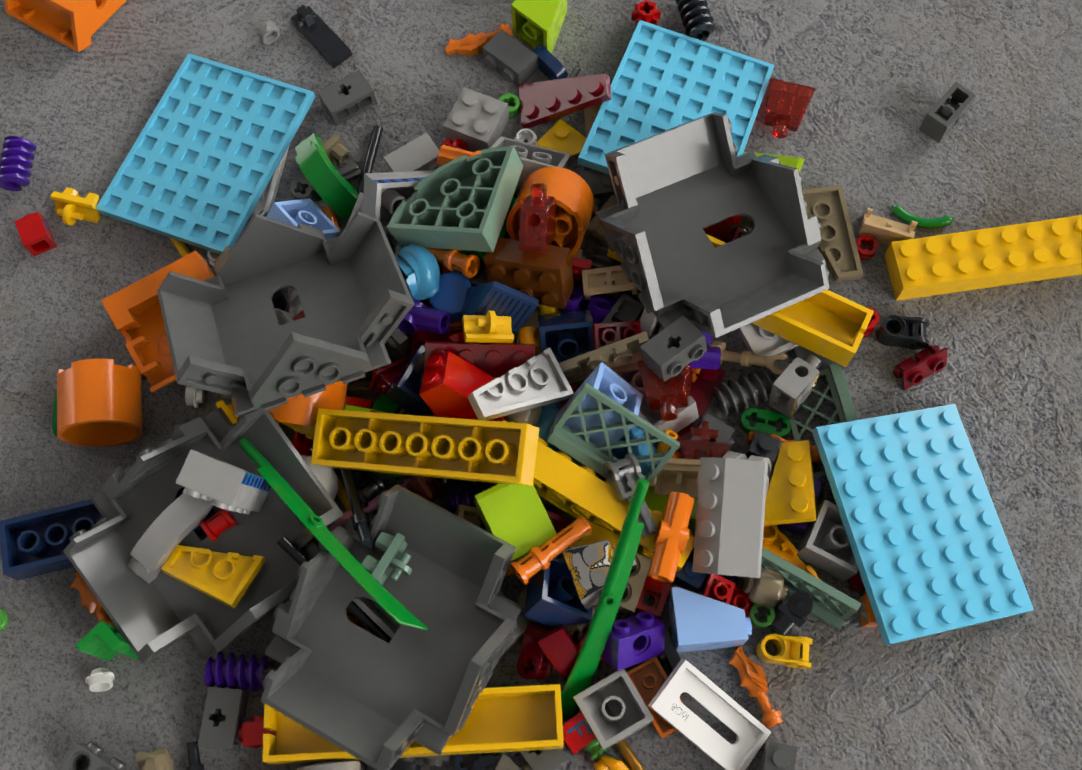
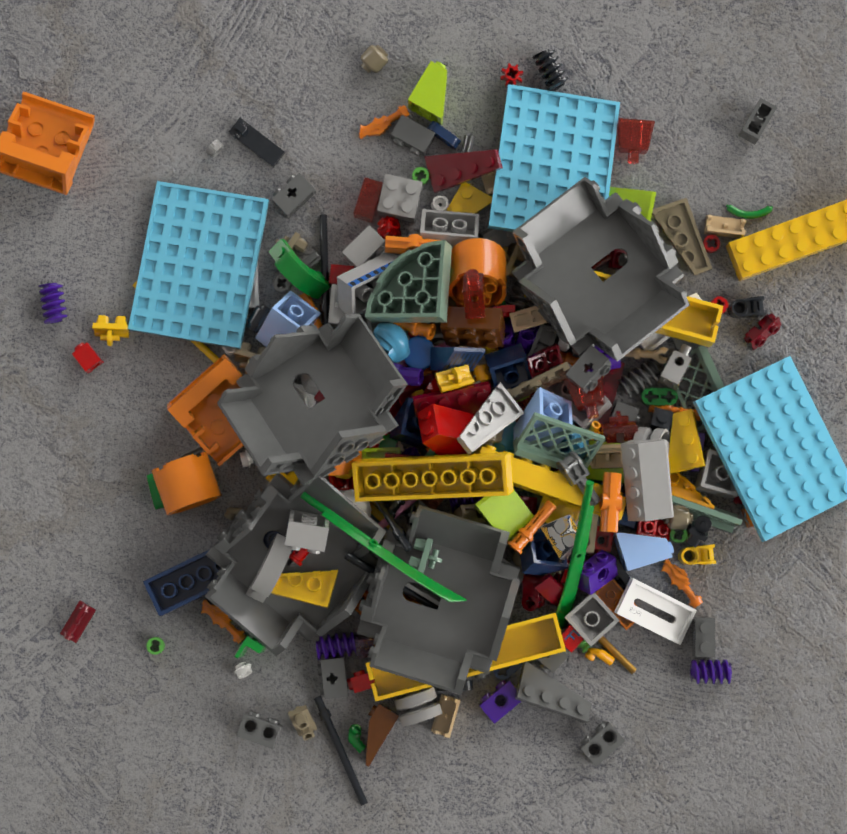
camera: 15 degrees left, 15 degrees up
(434, 115) = (368, 200): none -> clear red brick

